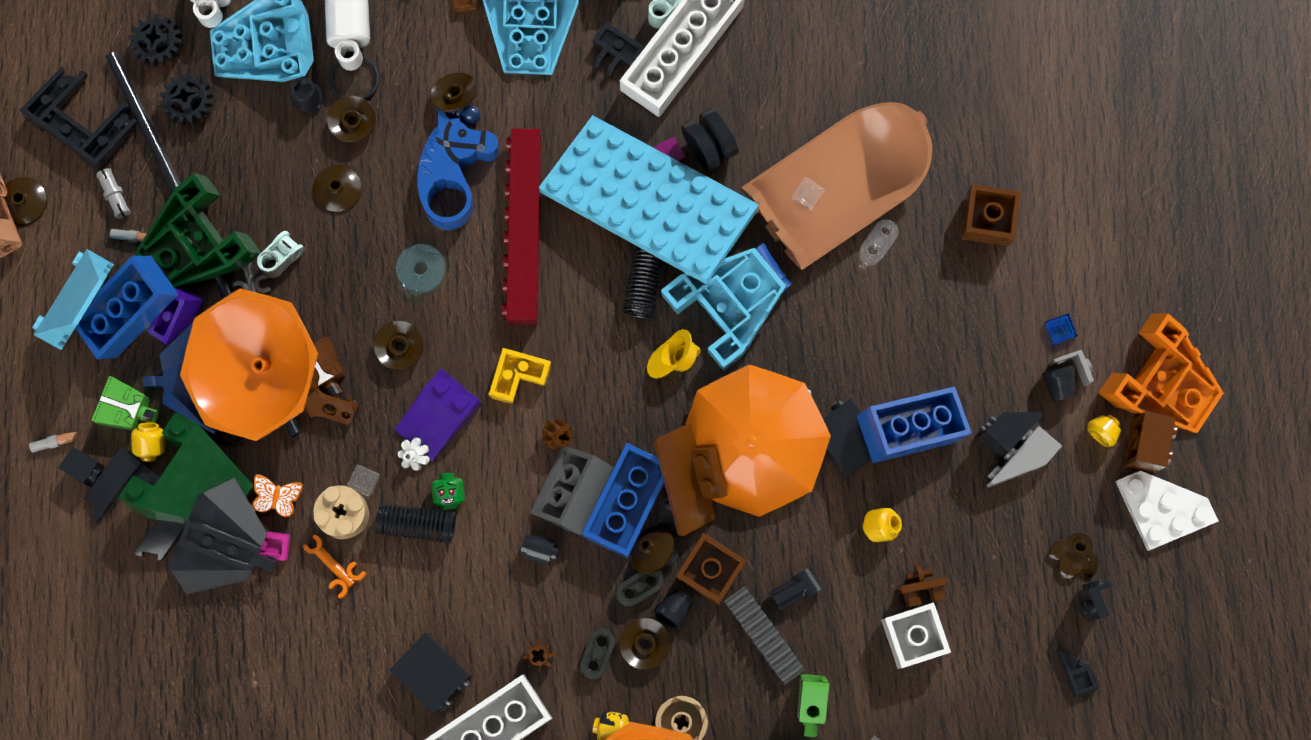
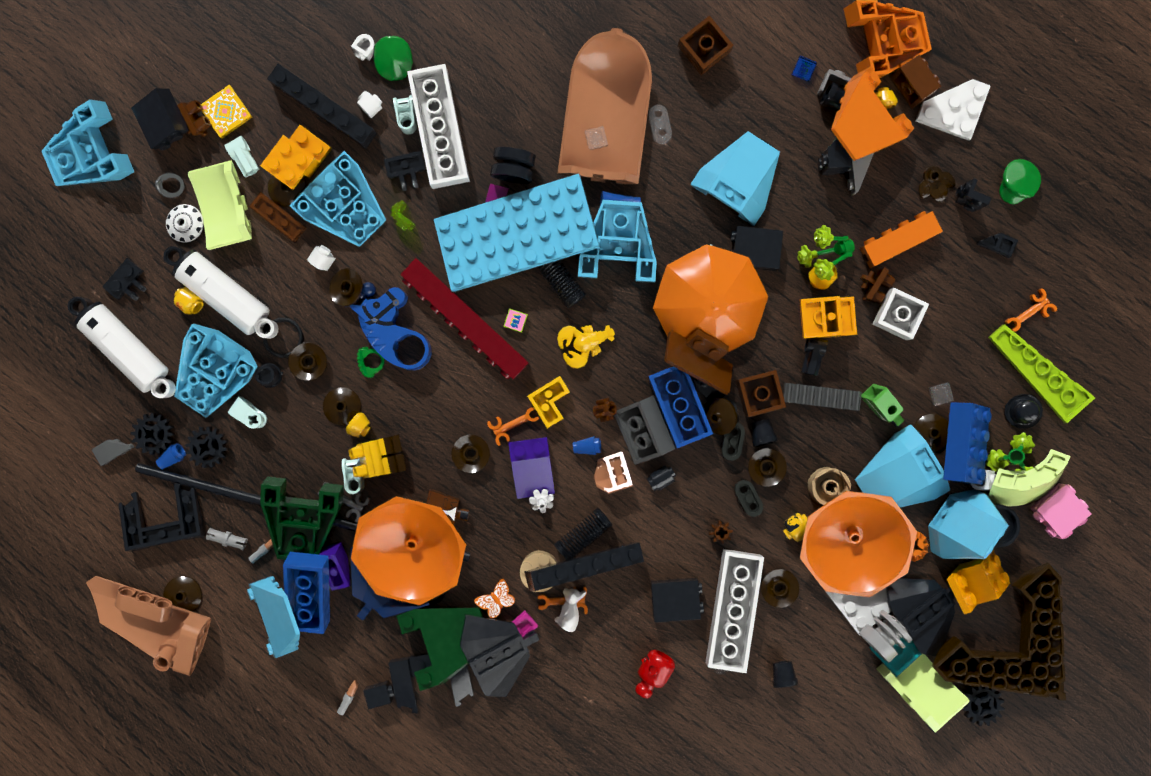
camera: 50 degrees left, 10 degrees up
(106, 17) = (110, 450): none -> dark grey slope
(123, 407) = (364, 641): bright green torso -> none
(147, 441) = (398, 645): yellow head -> none
(149, 75) = (172, 455): none -> blue cone
(252, 108) = (245, 411): none -> light aqua piece
(309, 255) = (371, 458): none -> yellow hips
(315, 407) = (465, 531): reddish brown piece -> none
(324, 579) = (569, 614): none -> white animal
(331, 217) = (358, 426): none -> yellow cone
(338, 717) = (654, 672): none -> red piece
(363, 480) = (531, 542): clear tile -> none
(383, 547) = (583, 566): none -> black brick
(391, 181) = (367, 371): none -> green piece
(421, 282) = (446, 403): clear light blue tile -> none
(447, 353) = (500, 430): none -> orange bar
(447, 491) = (581, 500): green head -> none
(461, 46) = (321, 258): none -> white plate
(502, 498) = (612, 473): none -> nougat slope
(508, 451) = (587, 446): none -> blue cone
(566, 274) = (515, 320): none -> tile
(567, 76) = (402, 222): none -> clear neon green bracket
(603, 356) = (584, 343): none -> yellow animal
(675, 354) = (619, 302): yellow piece -> none
(845, 566) = (828, 317): none -> light orange bracket
(884, 514) = (823, 238): none -> lime plant
(902, 358) = (741, 176): none -> medium azure wedge
(913, 424) = (786, 204): blue brick -> none
(988, 570) = (901, 239): none -> orange brick
(1061, 423) = (863, 121): none -> orange wedge
(1156, 636) = (1019, 181): none -> green piece

